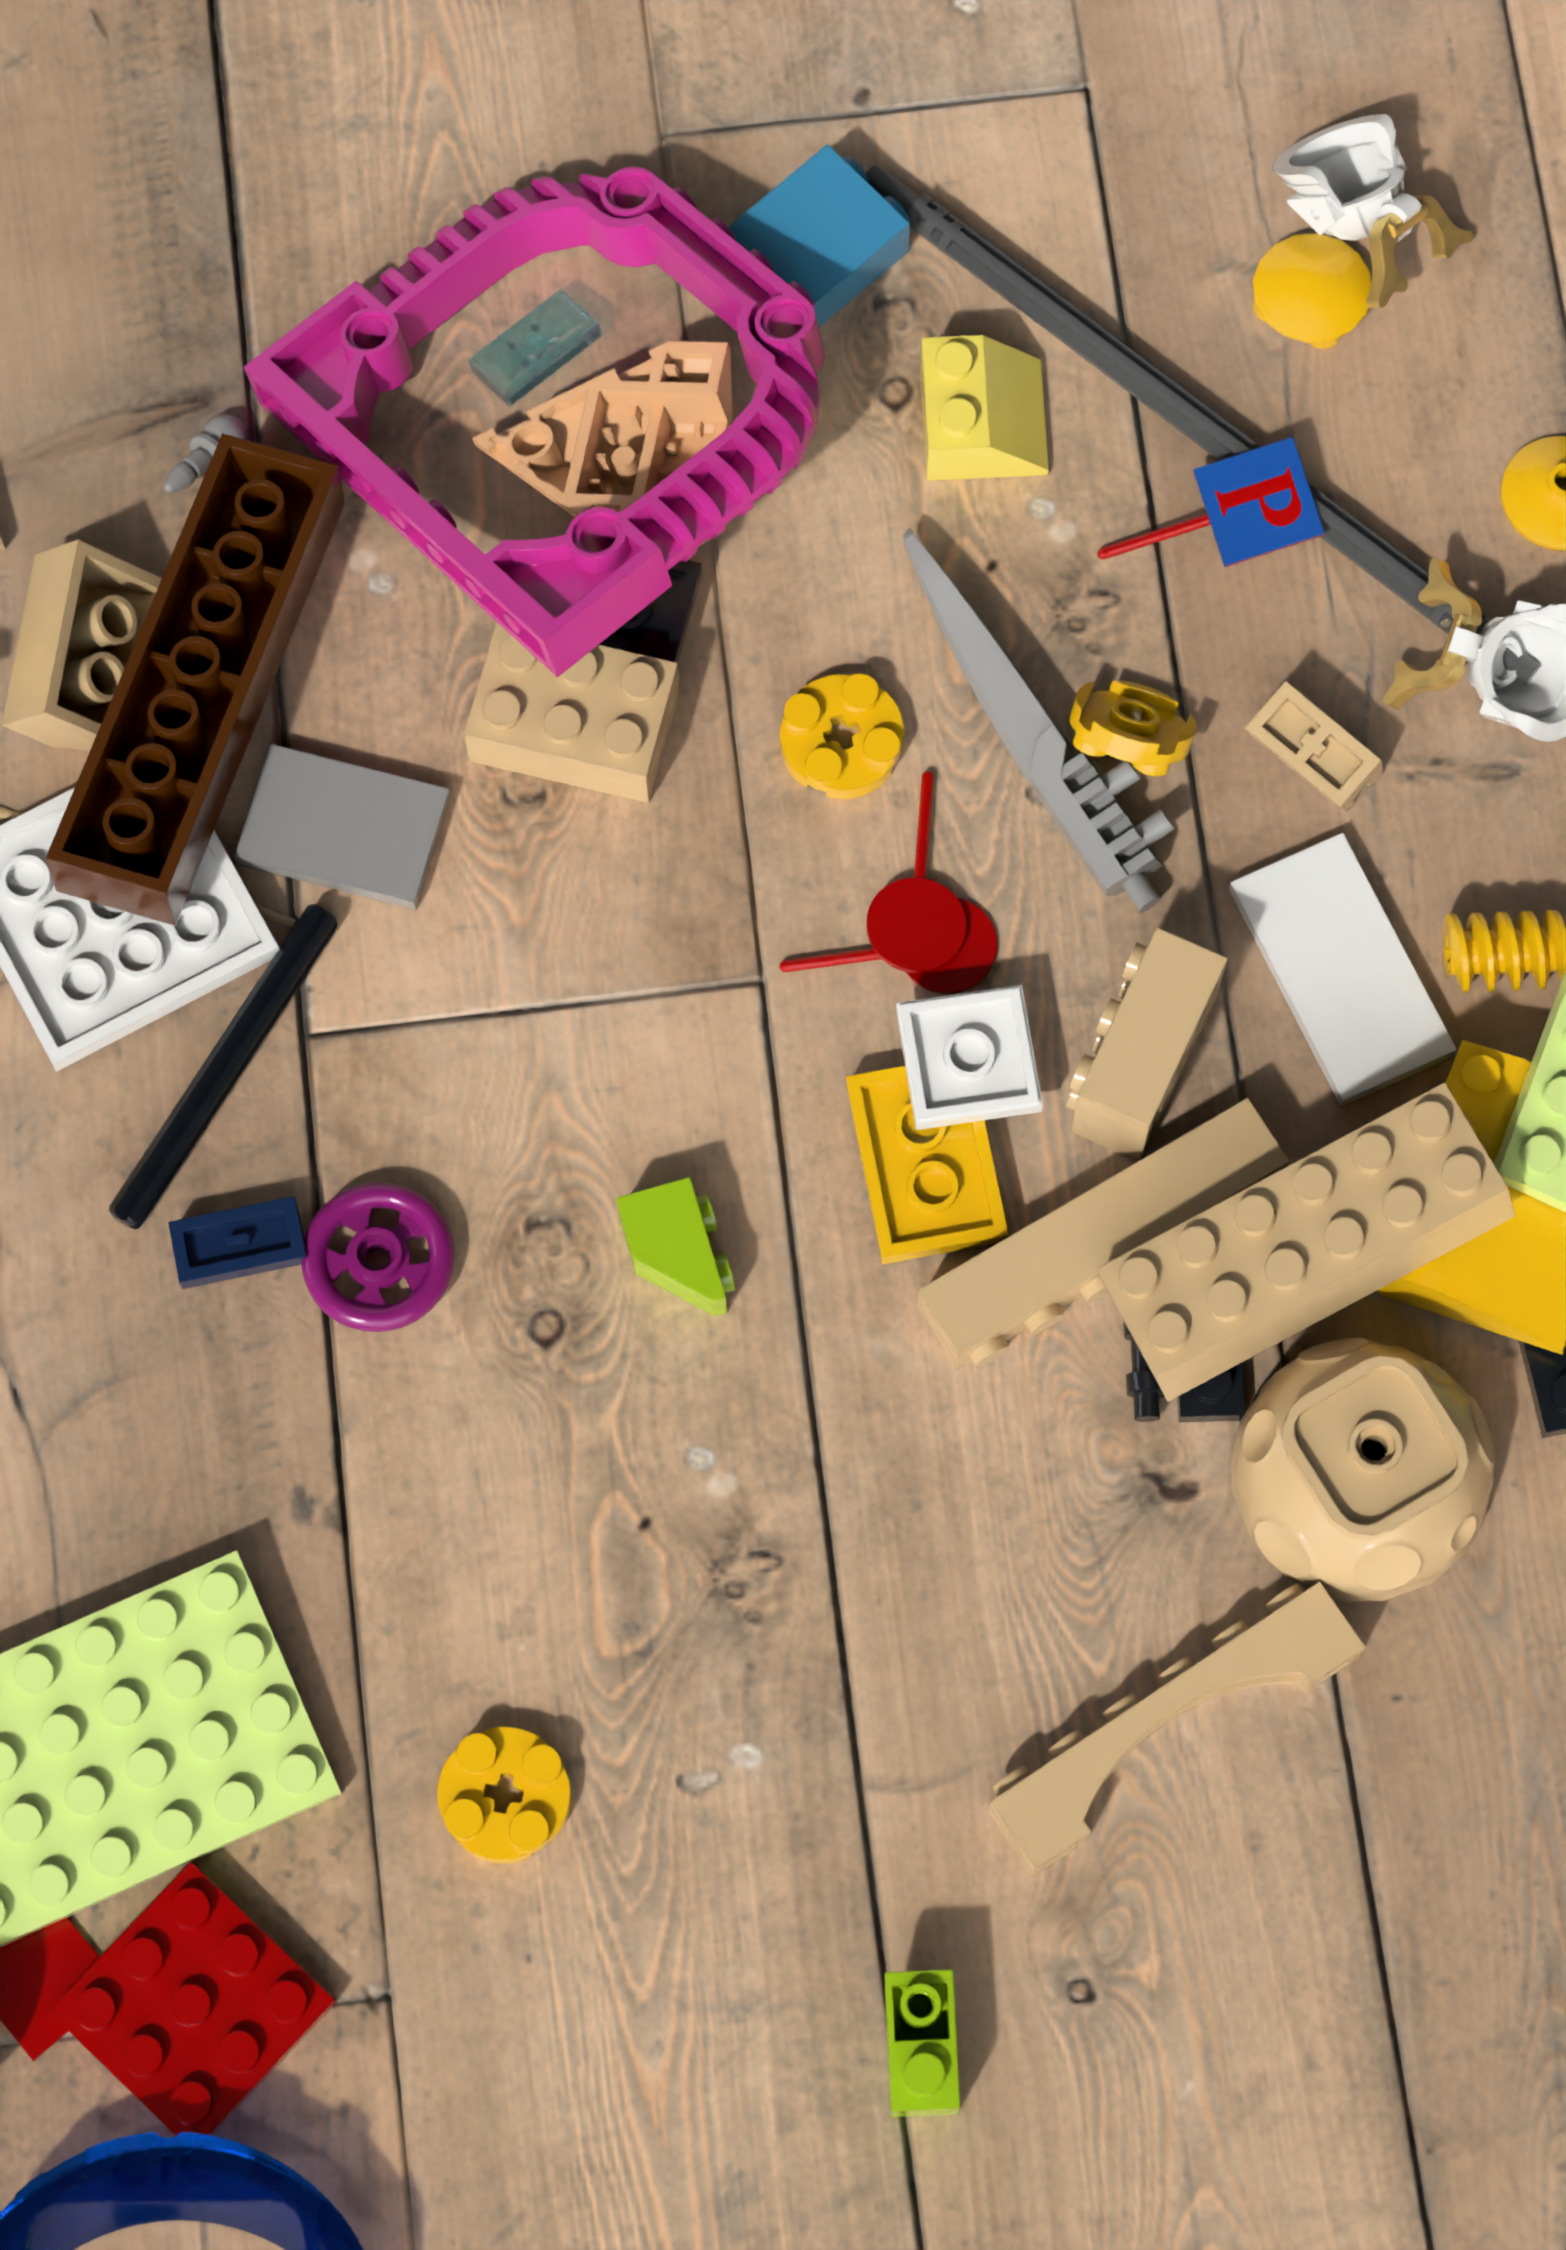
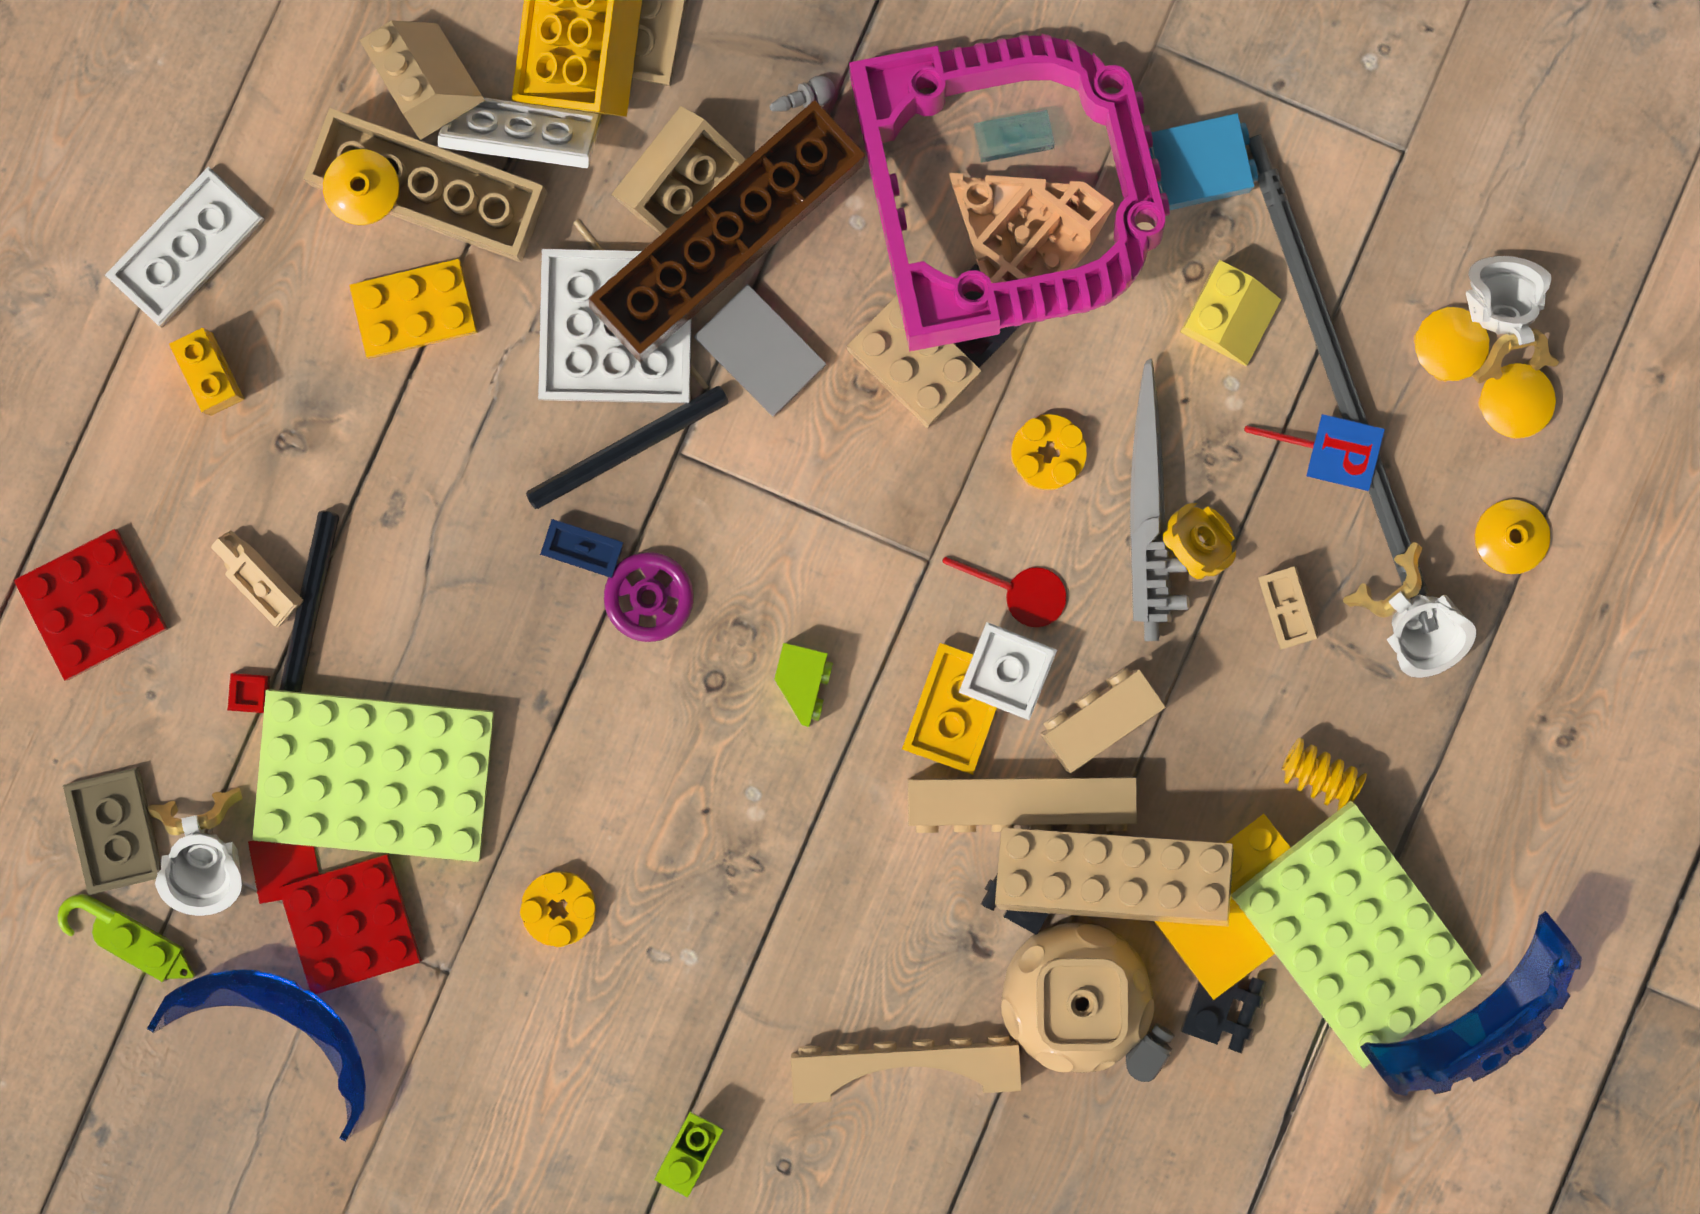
camera: 30 degrees right, 15 degrees up
(915, 919) = (1026, 576): red piece -> none
(1342, 969) = (1231, 731): white tile -> none
(1450, 312) = (1518, 401): none -> yellow dish
(1519, 1492) = (1150, 1054): none -> dark grey arm

